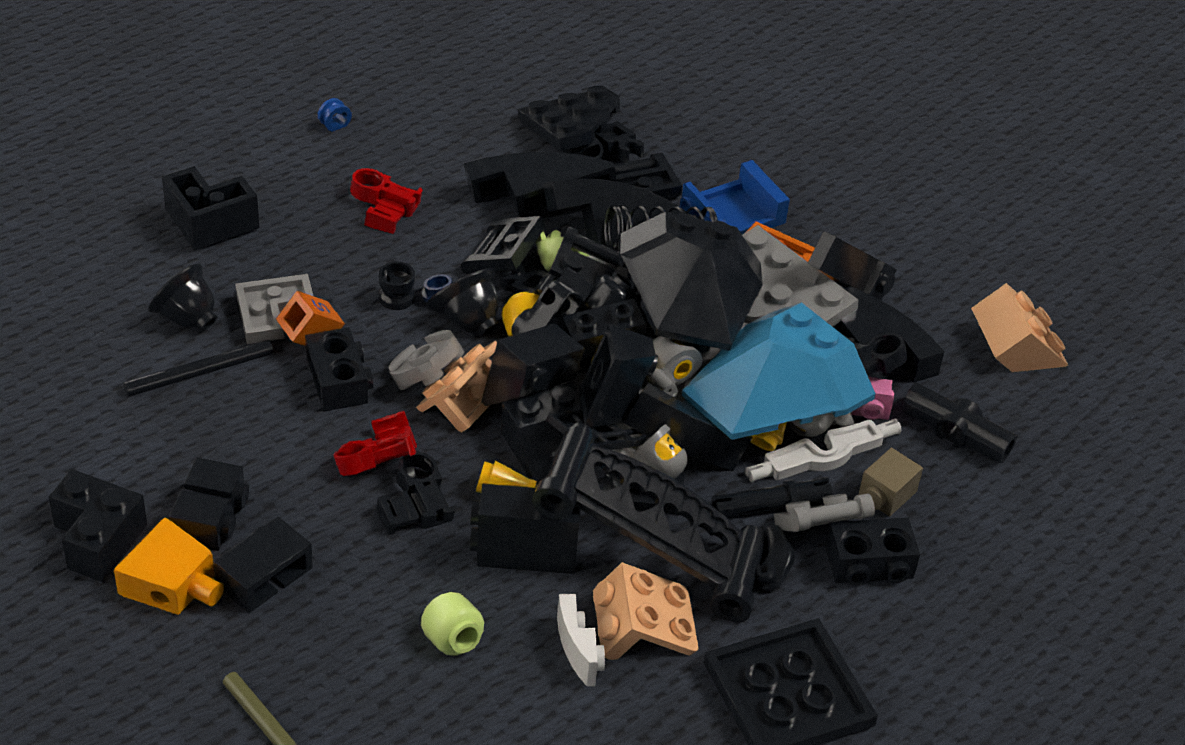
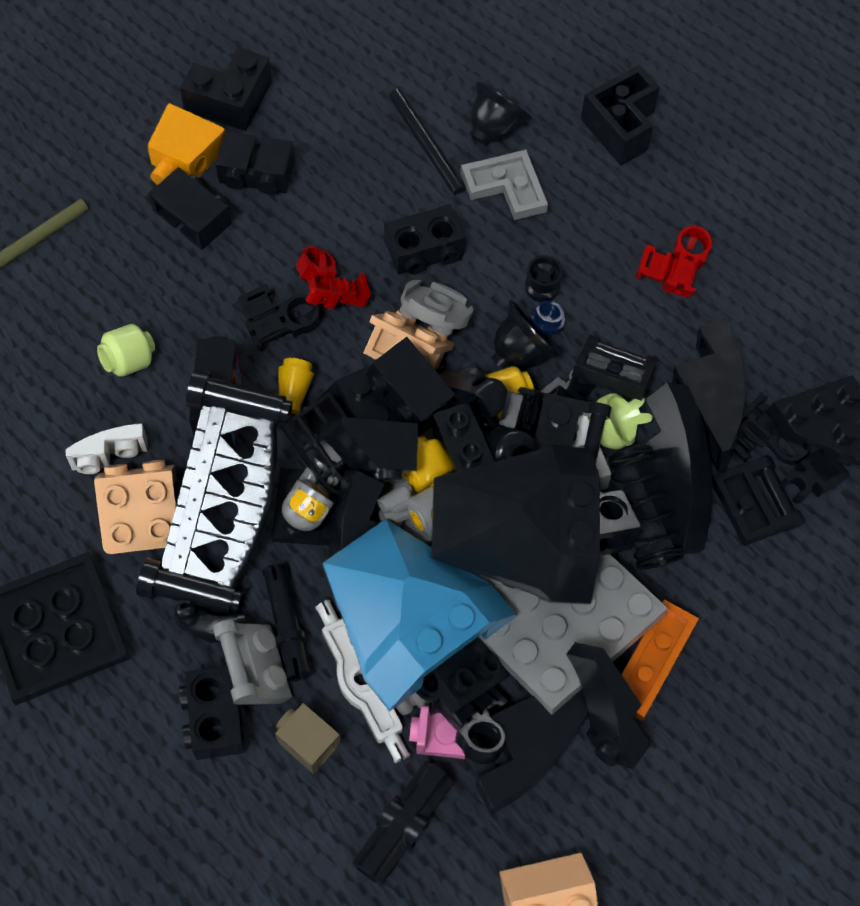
camera: 90 degrees right, 20 degrees up
(306, 316) = (477, 210): orange brick -> none
(330, 108) = (798, 206): blue bush -> none
(741, 201) = (726, 598): blue panel -> none

